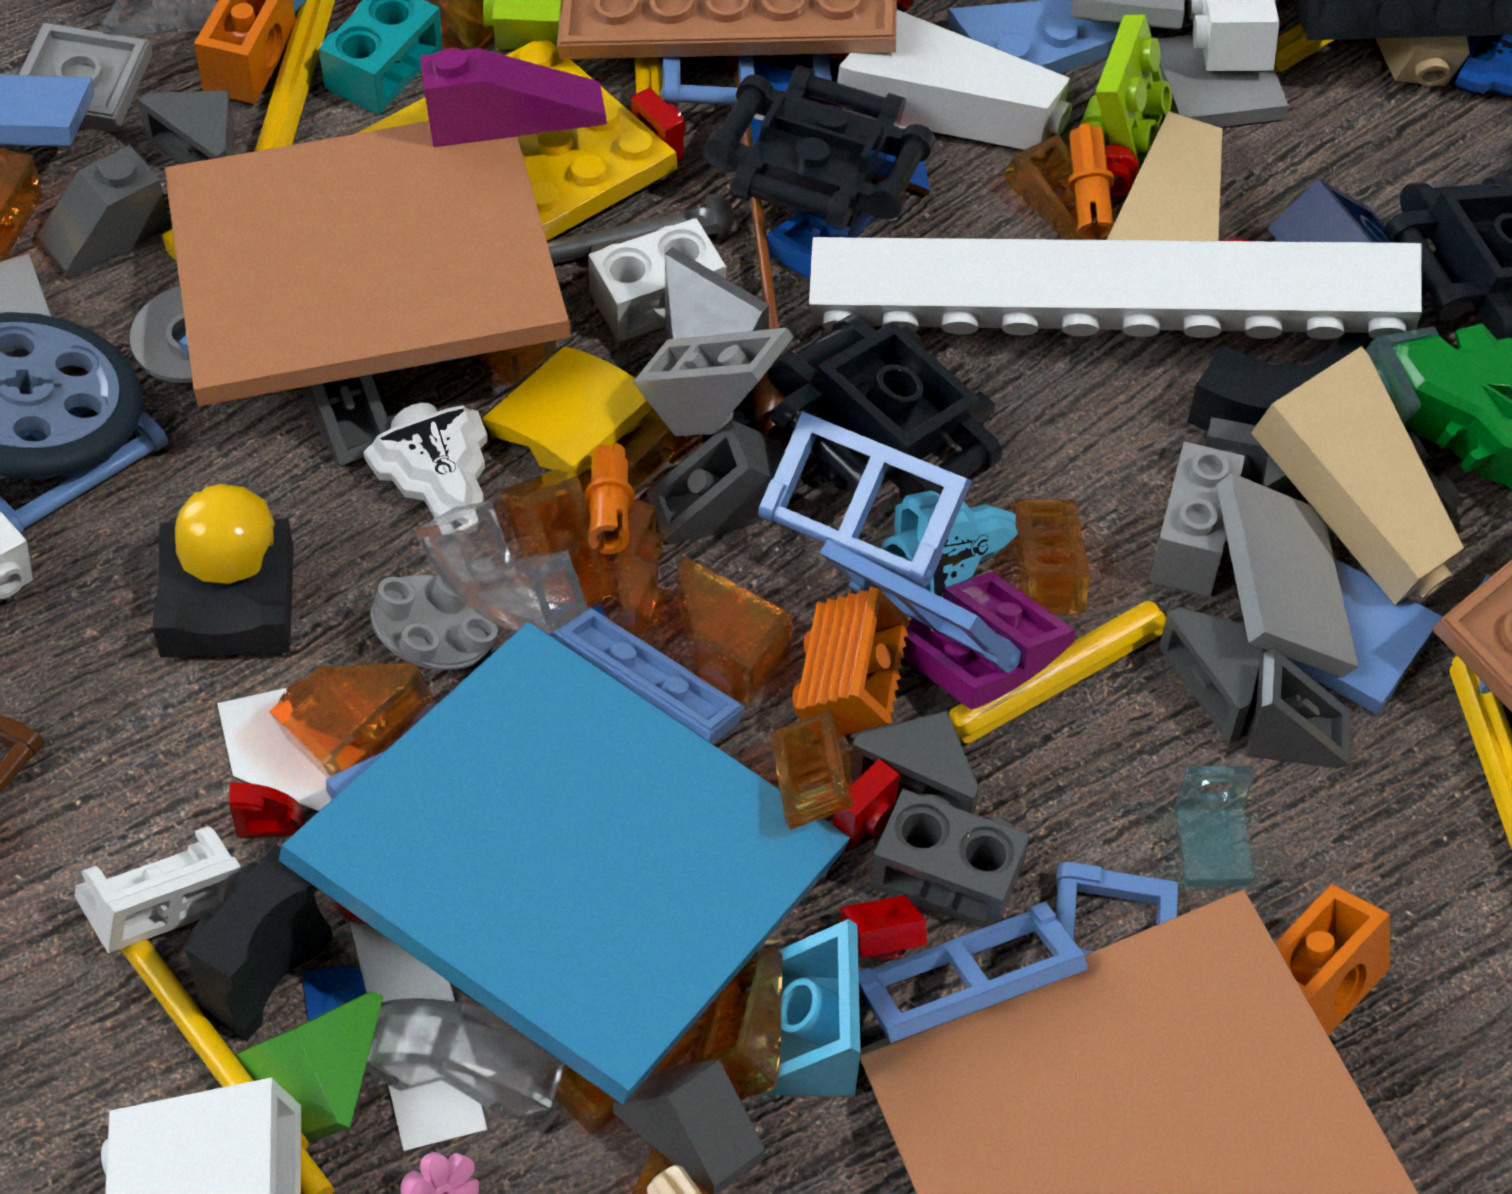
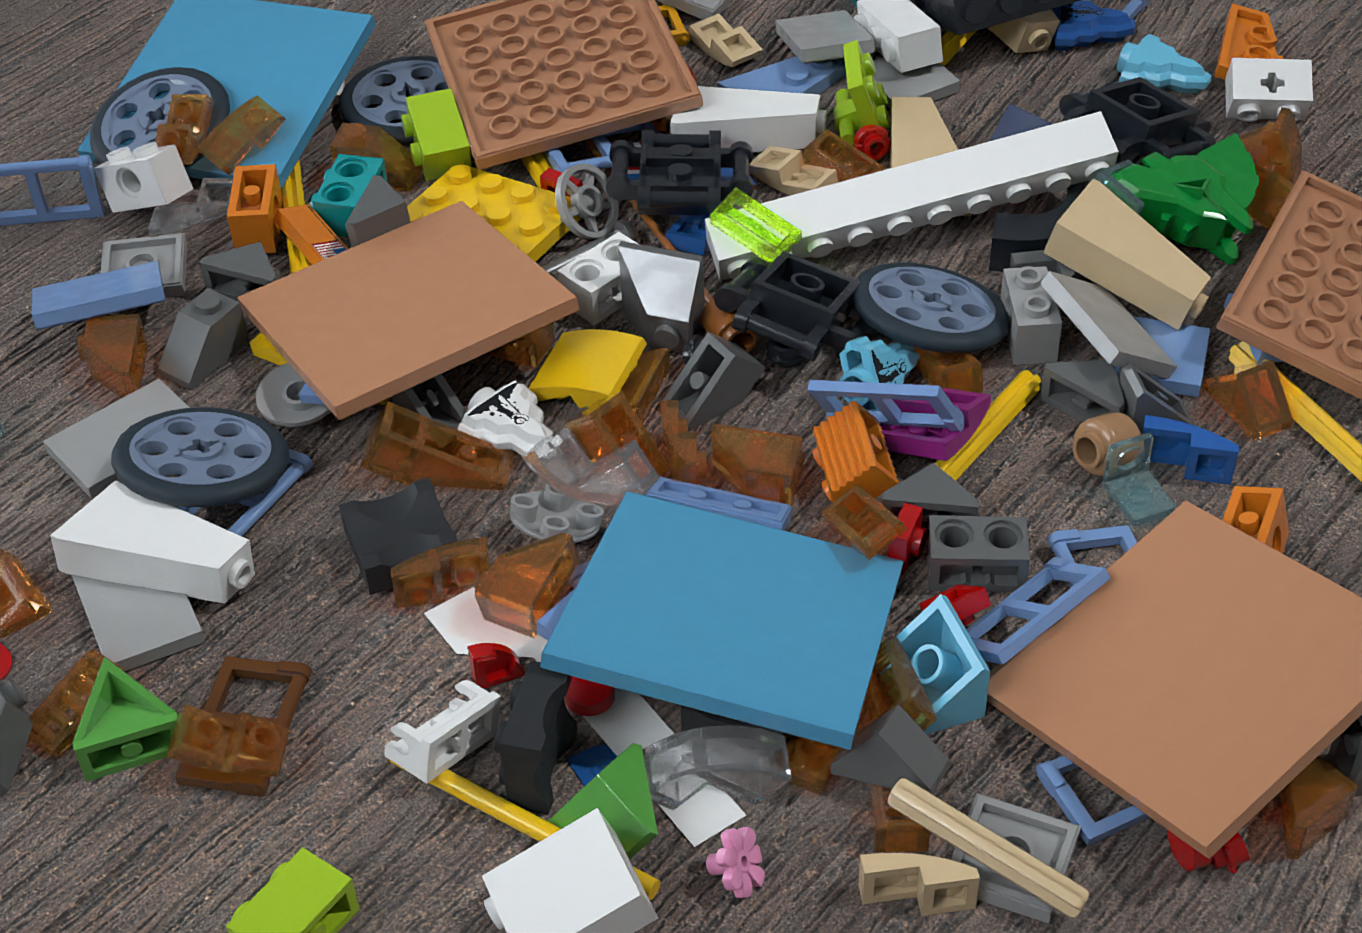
camera: 15 degrees left, 10 degrees down
(223, 533) = (390, 495): yellow hair -> none
(236, 656) = (425, 576): none -> clear orange slope
(302, 95) = (309, 232): none -> orange tile
(320, 480) = (416, 447): none -> clear orange slope
(386, 95) = (376, 212): none -> dark grey slope
(495, 96) = (453, 191): magenta slope -> none
(609, 499) = (647, 403): orange axle -> none
(677, 154) = (585, 202): none -> light grey wheel
(704, 378) = (681, 311): light grey slope -> none
(881, 456) = (821, 321): window -> none
(899, 311) = (752, 243): none -> clear neon green tile
(981, 185) = (787, 173): none -> tan slope
(1064, 464) = (930, 308): none -> wedge
(1091, 180) = (861, 144): orange axle -> none
(1202, 740) = (1095, 436): none -> medium nougat head
(1329, 810) = (1202, 452): none -> blue slope
(1445, 744) = (1252, 398): none -> clear orange slope

